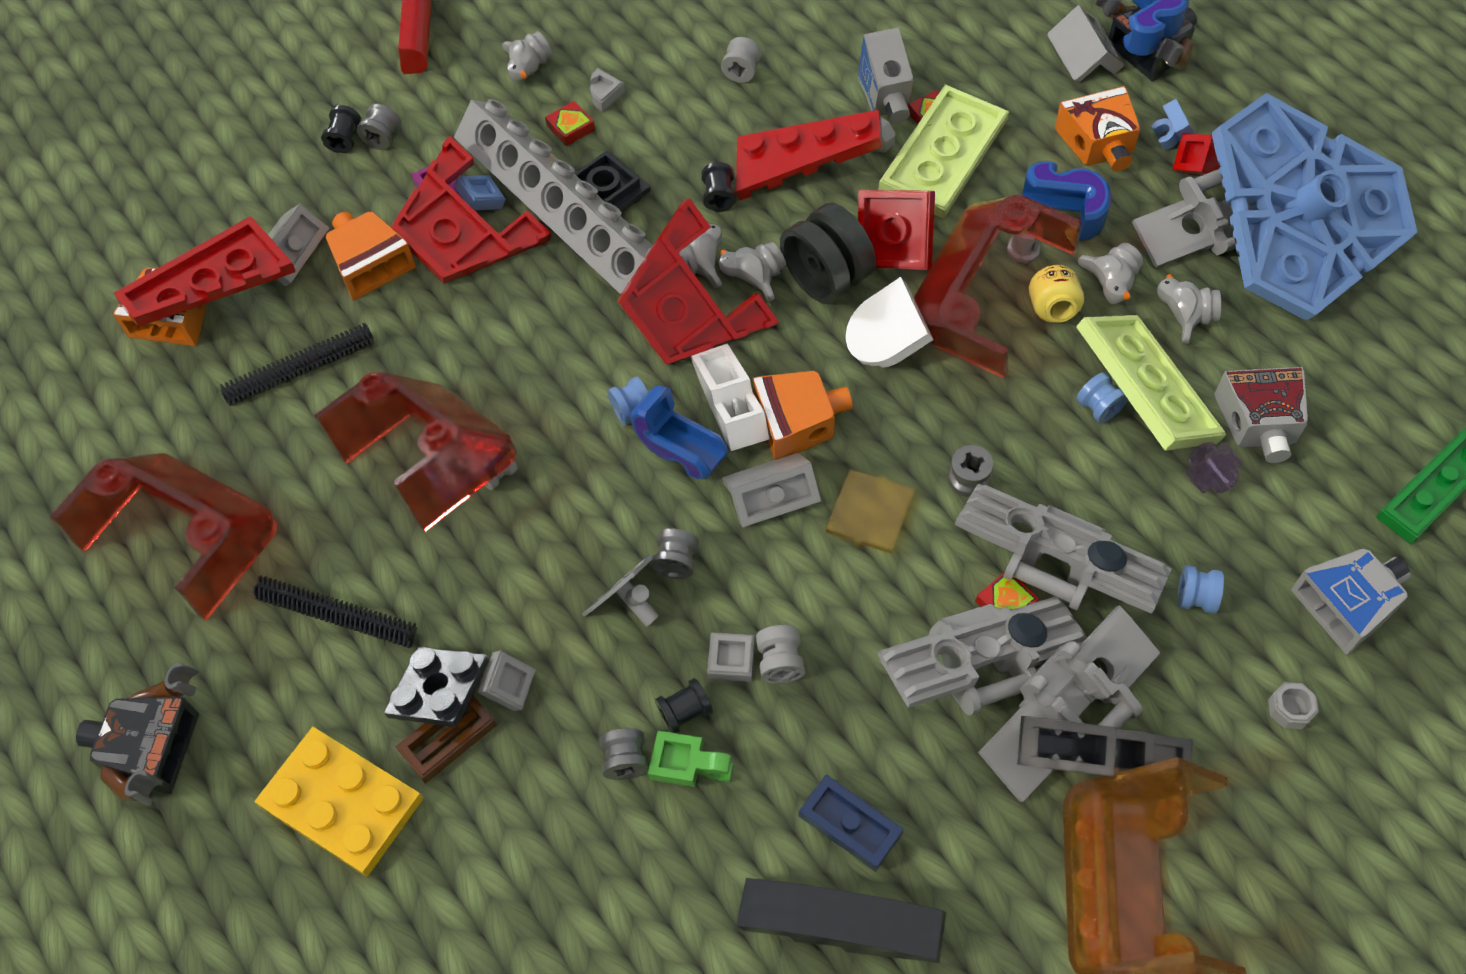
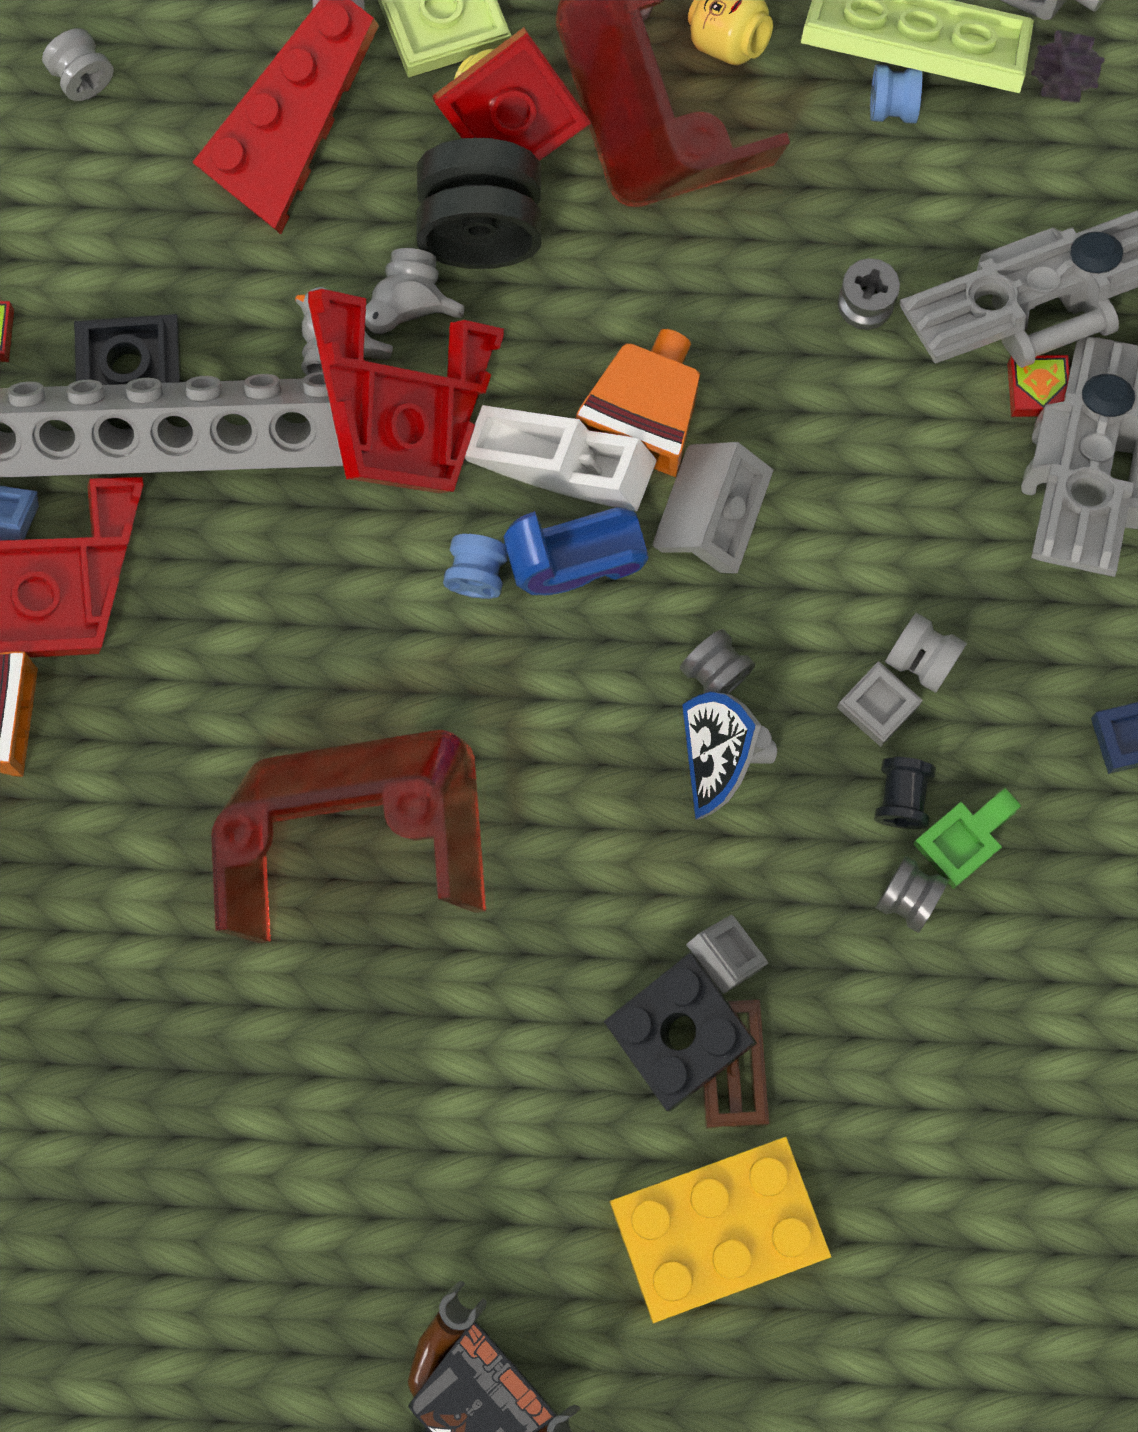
camera: 55 degrees left, 15 degrees up
(224, 527) = (253, 1116): clear red windscreen -> none
(296, 364) = (71, 905): black axle -> none
(335, 611) = (473, 1083): black axle -> none
(718, 180) = (251, 241): black bush -> none
(870, 511) = (822, 430): clear yellow piece -> none
(887, 327) = (625, 225): white tile -> none

